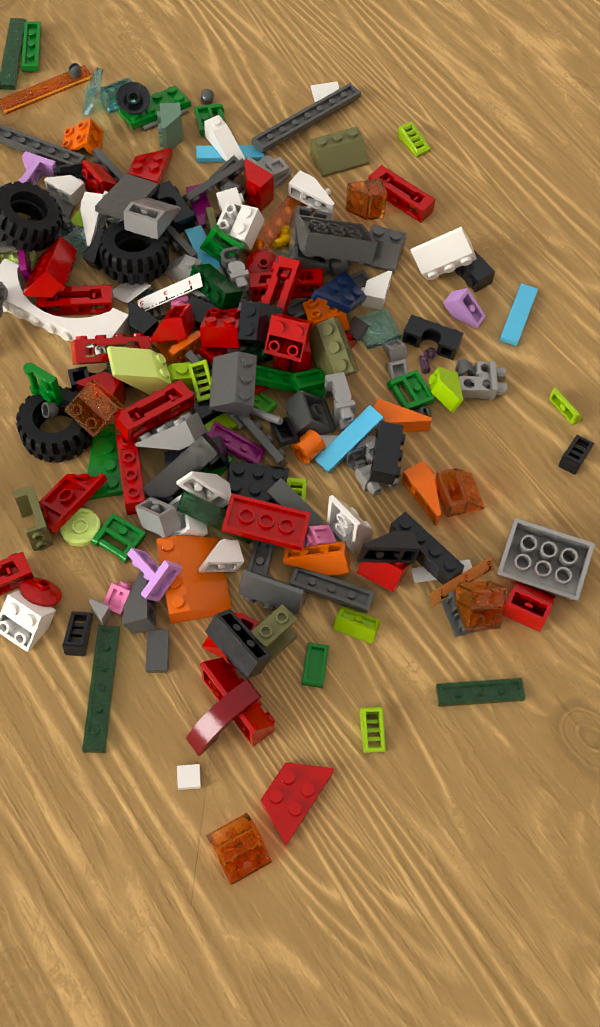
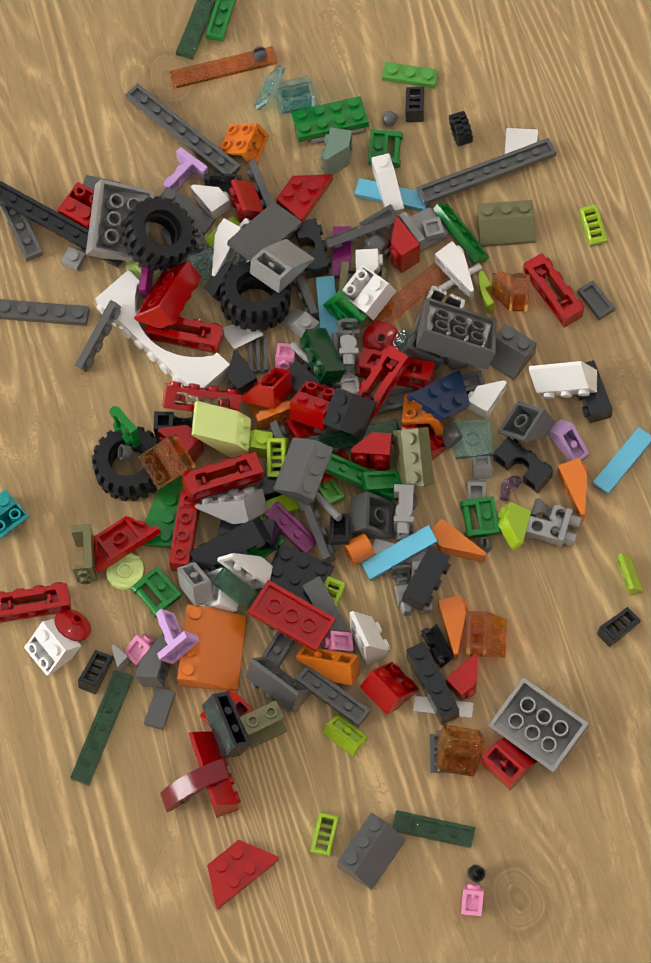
camera: 25 degrees right, 5 degrees up
(131, 91) = (304, 100): black dish -> none
(170, 292) = (276, 350): white sticker -> none
(188, 777) = (153, 827): white tile -> none
(212, 63) = (410, 75): none -> bright green plate
(223, 558) = (243, 638): white slope -> none
(225, 84) = (414, 110): none -> black slope
(239, 848) = (175, 899): clear orange slope -> none
(273, 89) = (460, 128): none -> black tyre
(284, 238) = (412, 314): yellow arm -> none
(288, 336) = (370, 435): red slope -> none
(297, 165) = (461, 233): none -> green plate
(315, 665) = (294, 761): green tile -> none
(341, 209) = (484, 291): none -> lime slope
(391, 548) = (395, 674): black slope -> none
(417, 512) = (438, 645): none -> black hinge
(425, 297) = (527, 423): none -> dark grey slope
(427, 733) = (371, 851): none -> dark grey slope
(443, 196) = (596, 300): none -> dark grey tile
(456, 536) = (464, 679): none -> red slope
(469, 576) = (458, 720): clear orange sticker -> none
(485, 341) = (574, 480): none -> orange slope
(541, 723) = (480, 873): none -> black hinge
(549, 752) = (472, 899): none -> bright pink bracket

